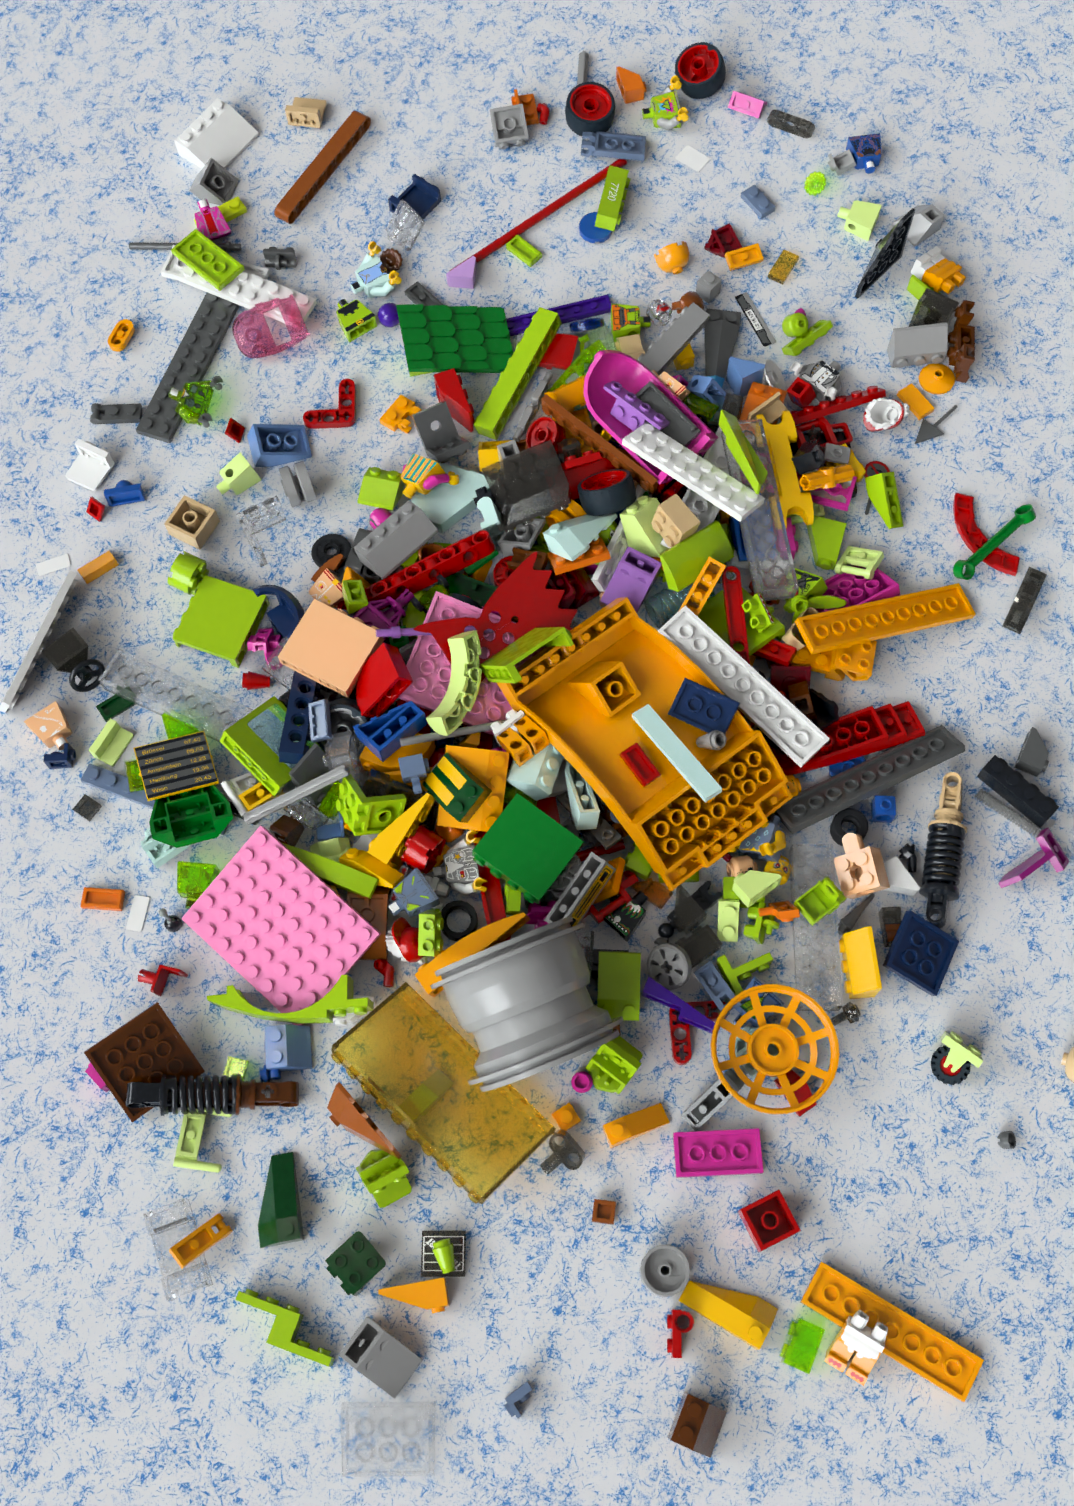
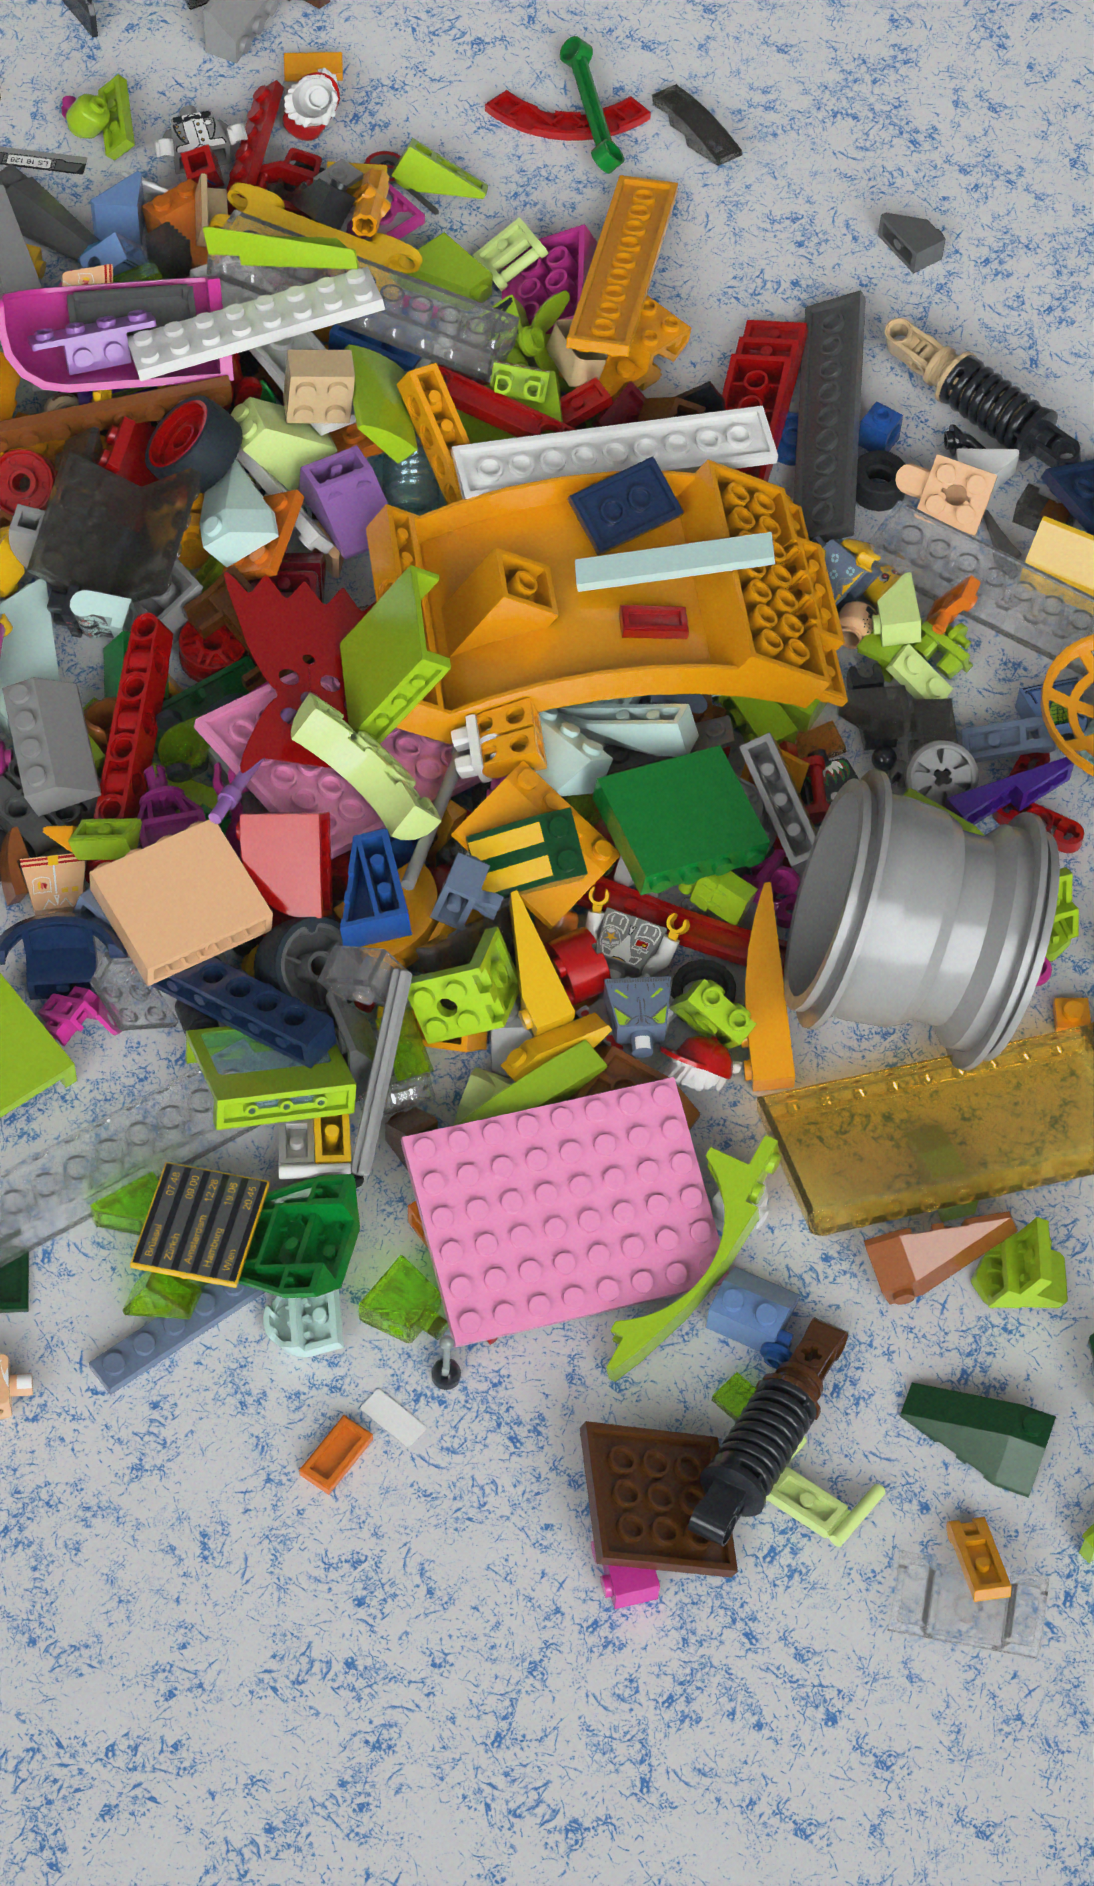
camera: 65 degrees left, 10 degrees down
(61, 760) = (50, 1404): dark blue bracket -> none
(87, 807) = (162, 1404): clear smoke tile -> none
(111, 743) = (77, 1316): yellowish green panel -> none
(160, 978) = (527, 1432): red bracket -> none
(255, 681) = (122, 1064): red cone -> none
(320, 720) = (290, 974): sand blue plate -> none
(331, 831) = (452, 1076): medium blue bracket -> none
(386, 970) = (717, 1123): red arm -> none
(713, 740) = (679, 523): light grey cone -> none
(743, 971) = (1001, 702): lime bracket -> none
(820, 901) = (971, 548): lime piece -> none
(930, 431) = (368, 80): dark grey piece -> none
(936, 384) = (296, 27): light orange dish -> none
(1010, 813) = (955, 315): light grey piece -> none
(1017, 791) = (953, 283): black brick -> none
(1050, 851) = (1060, 321): magenta piece -> none

